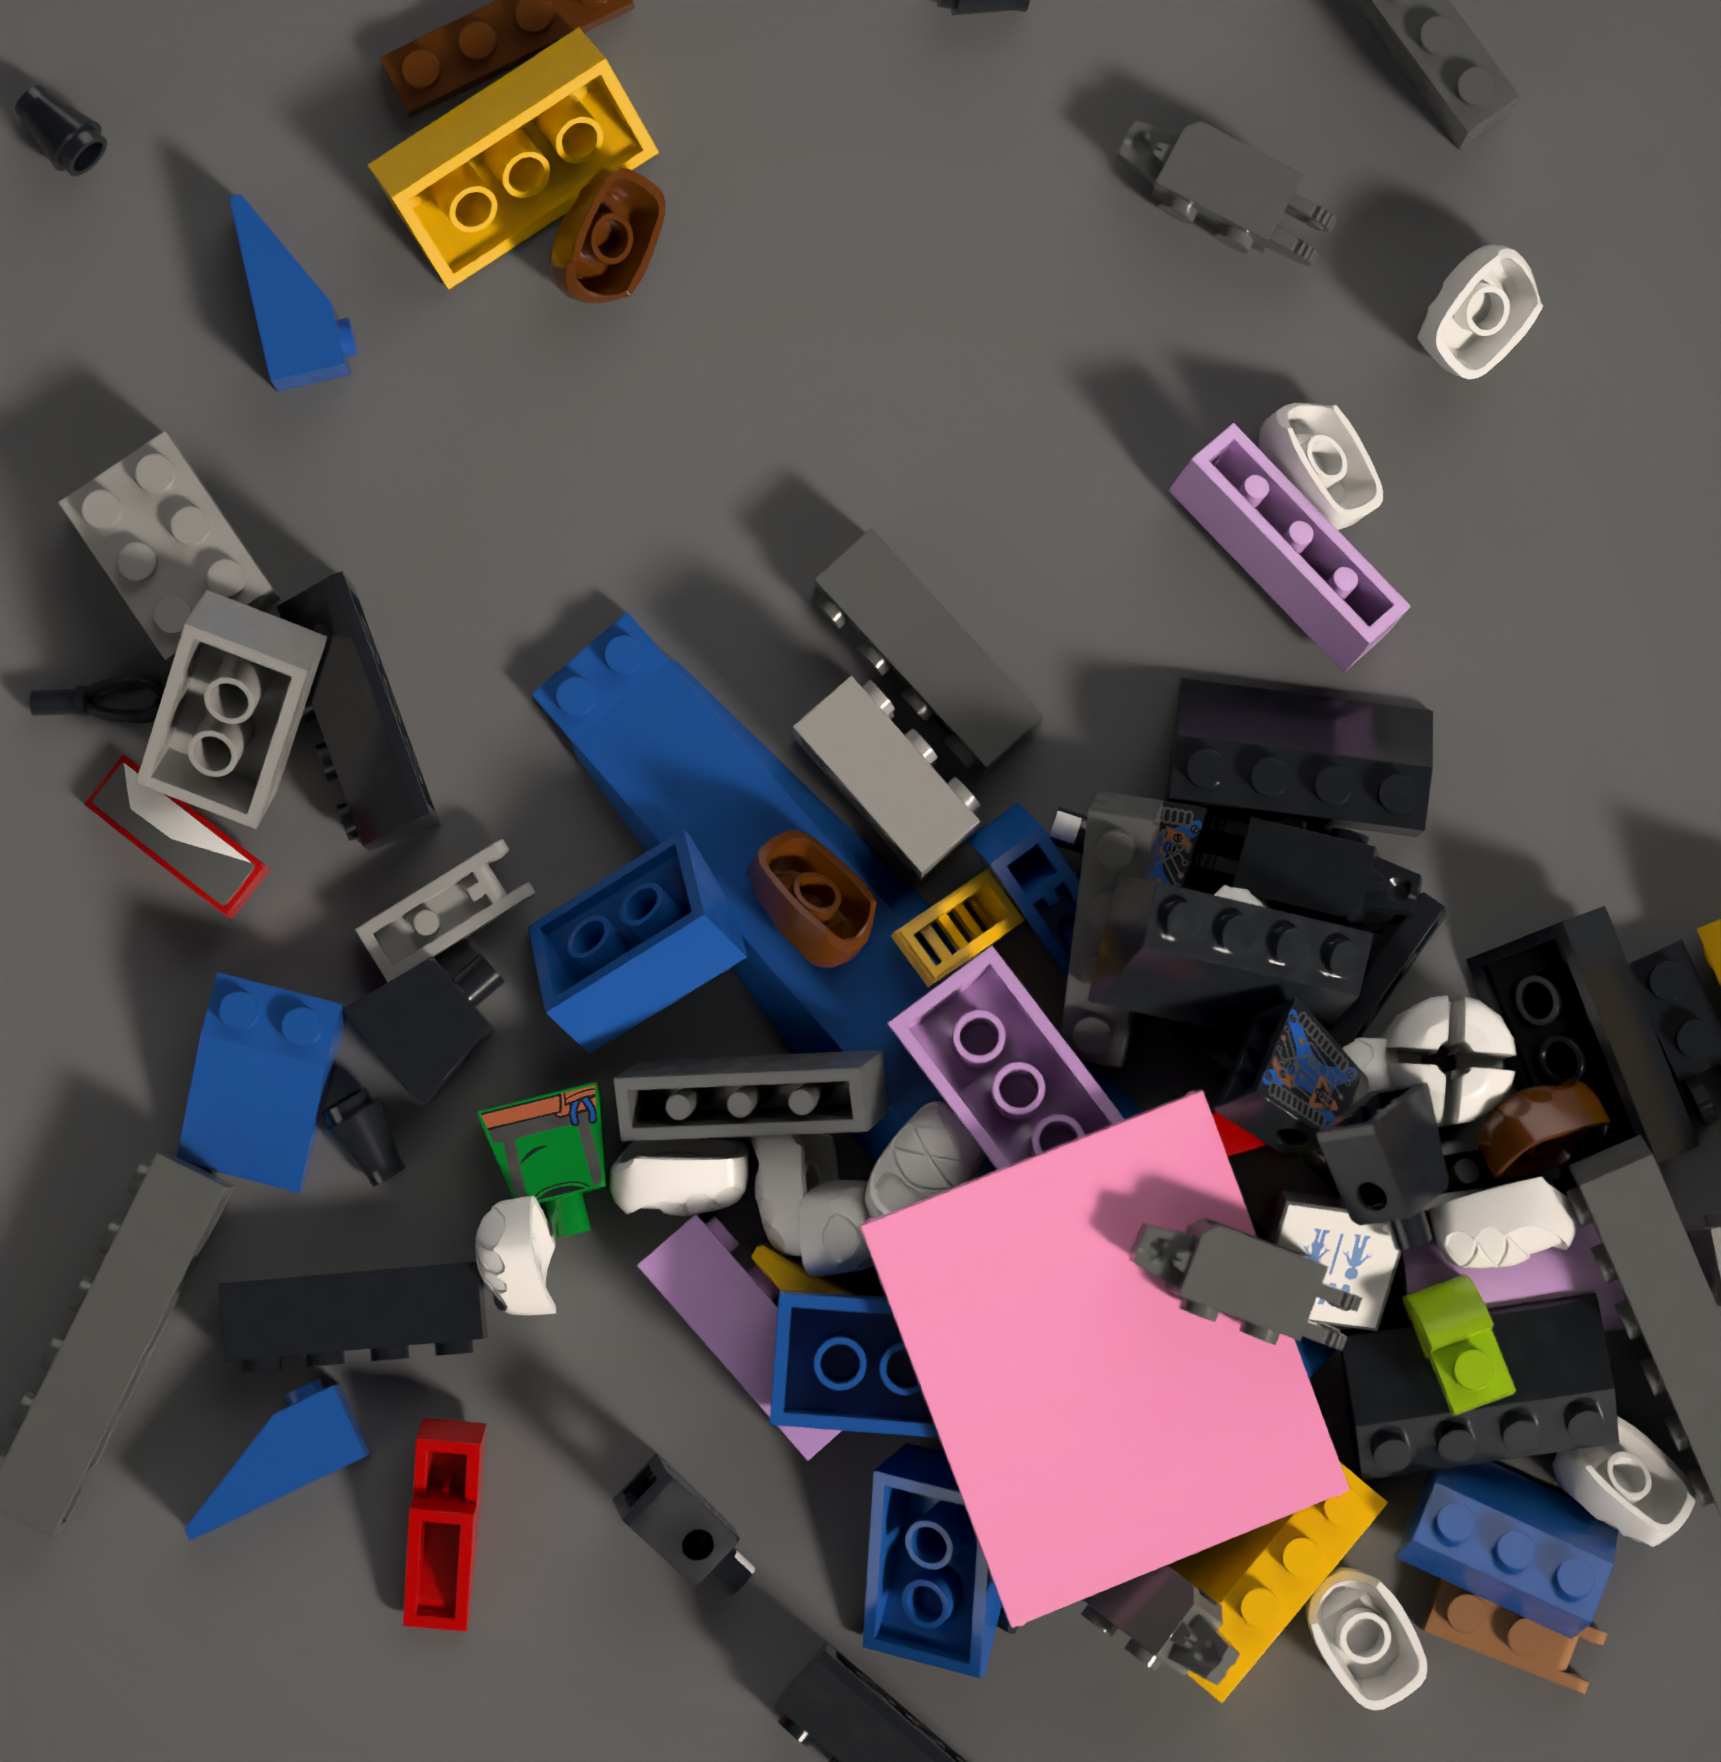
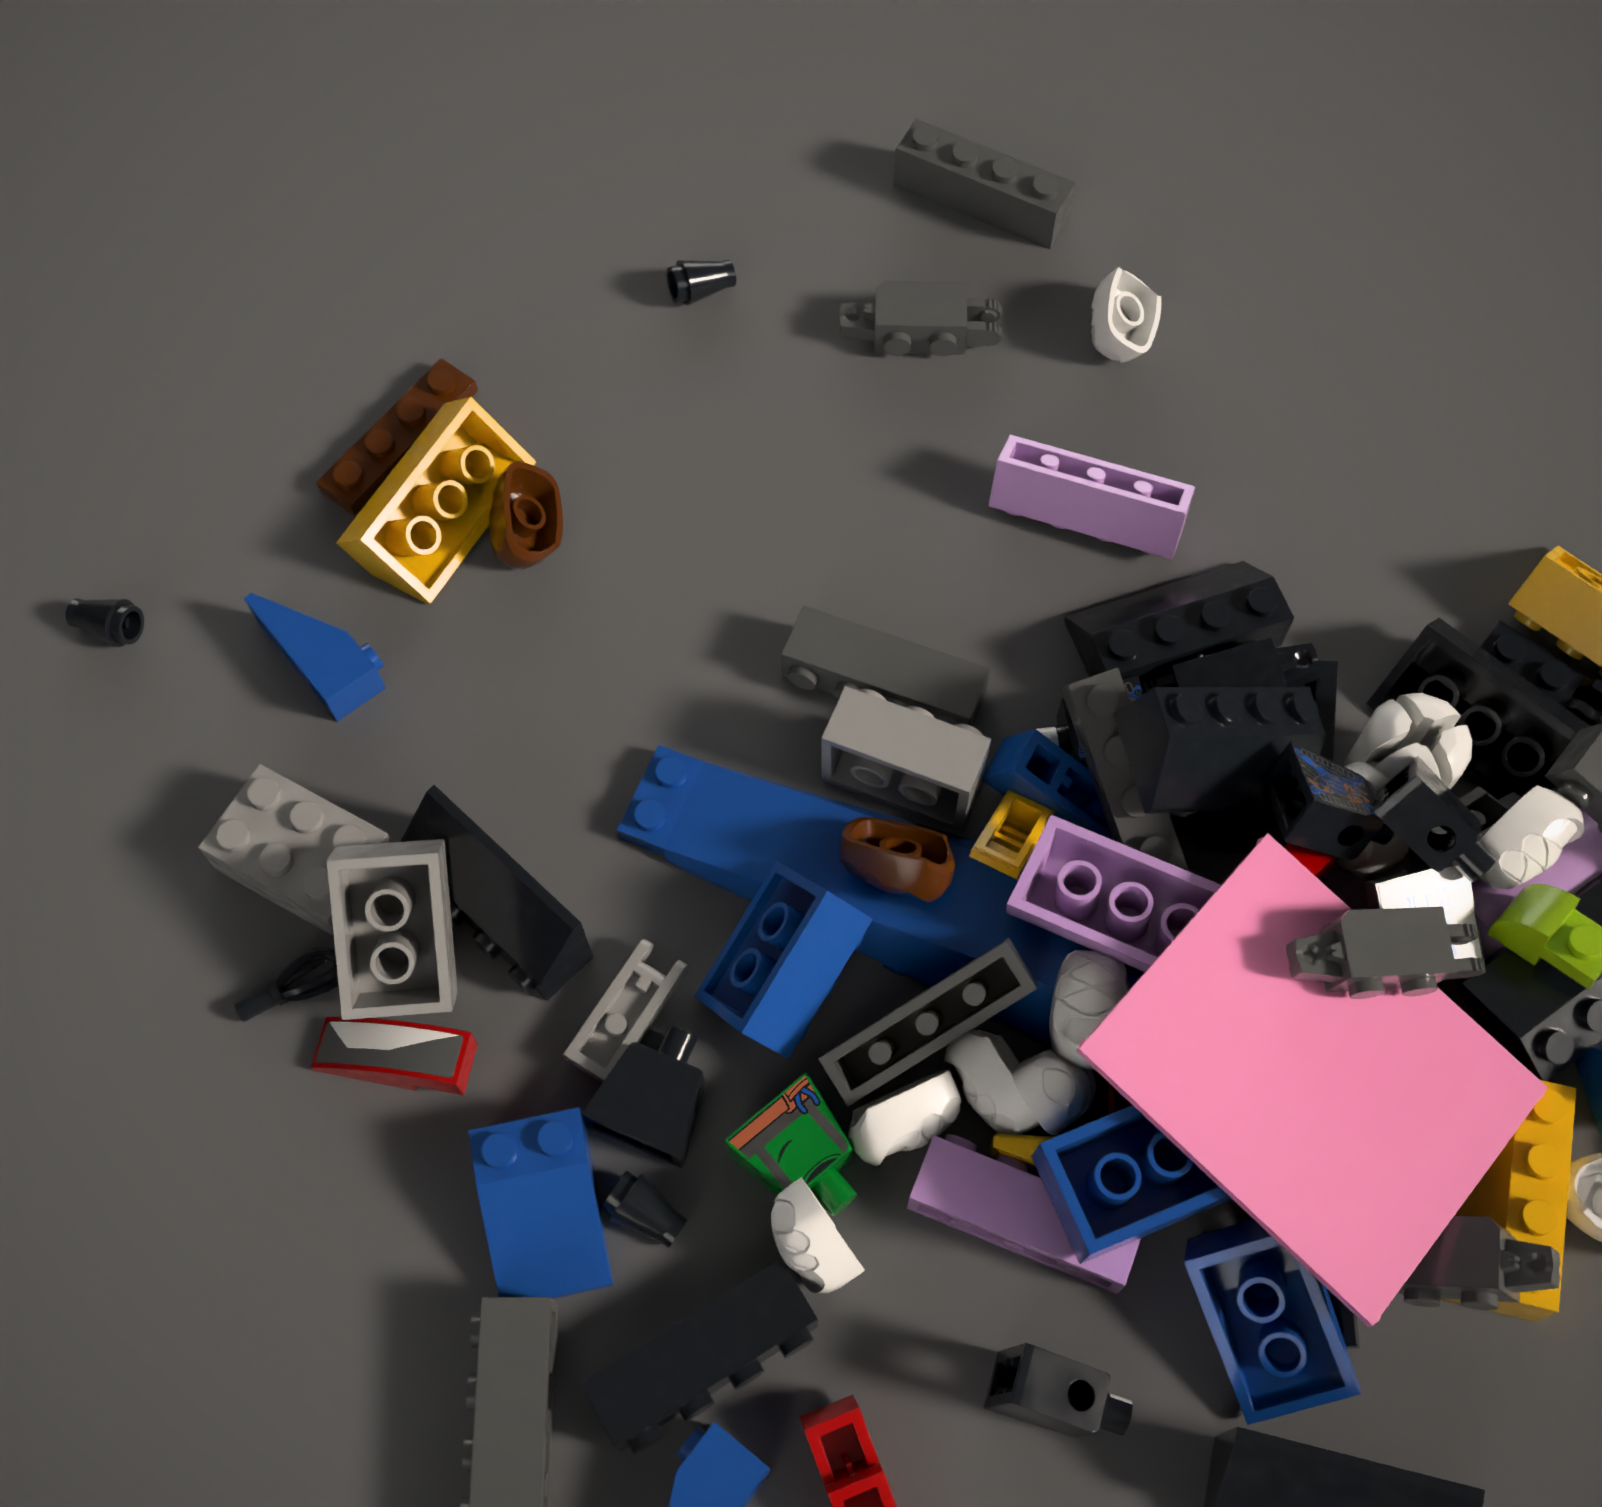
camera: 25 degrees left, 20 degrees down
(1323, 460) = (1081, 435): white piece -> none
(1538, 1128) = (1503, 763): reddish brown piece -> none

